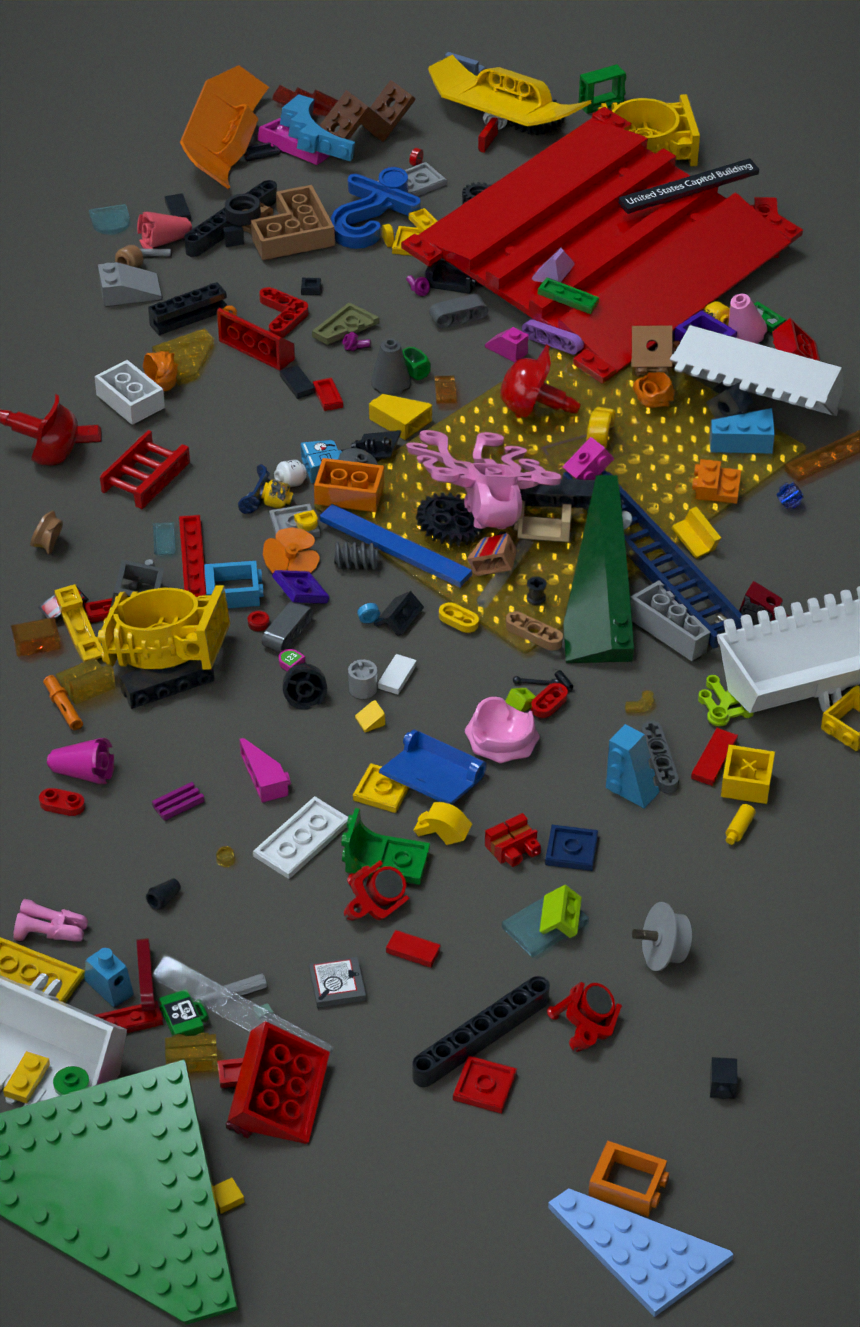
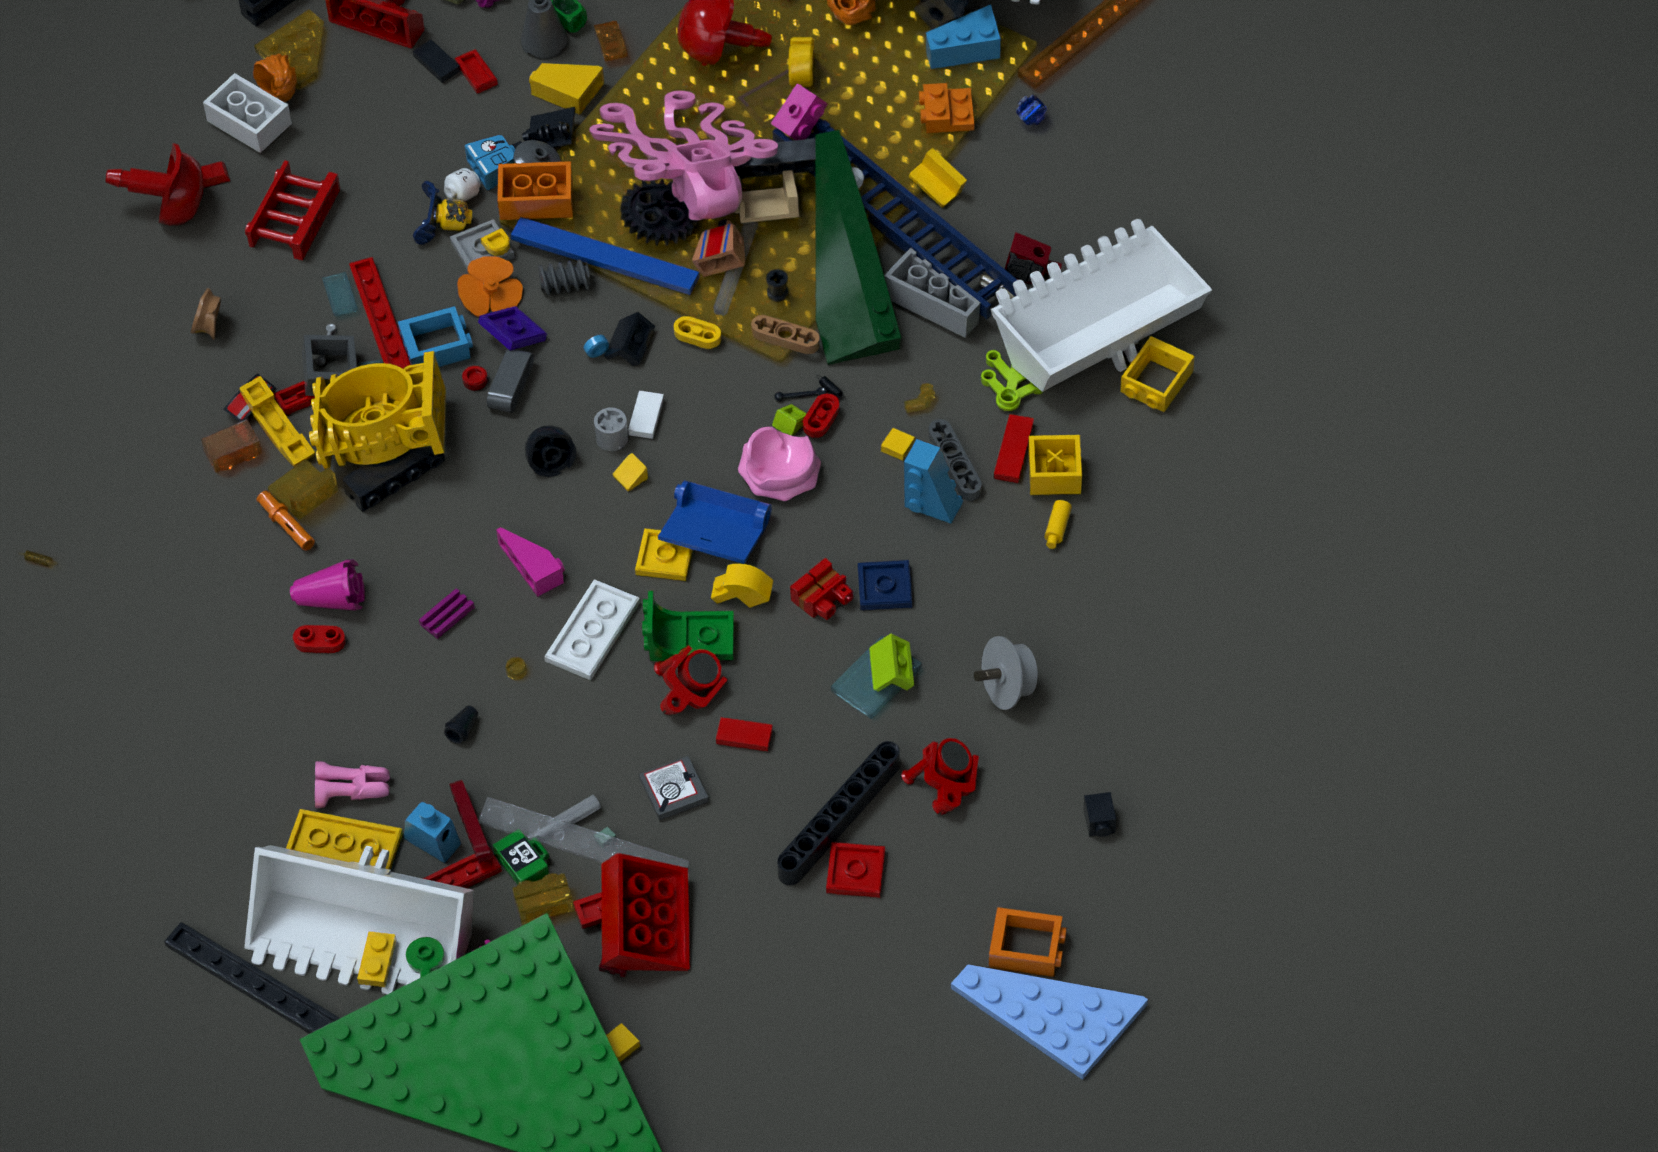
camera: 10 degrees left, 10 degrees up
(289, 658) = (524, 419): tile -> none
(607, 733) = (897, 444): none -> yellow tile

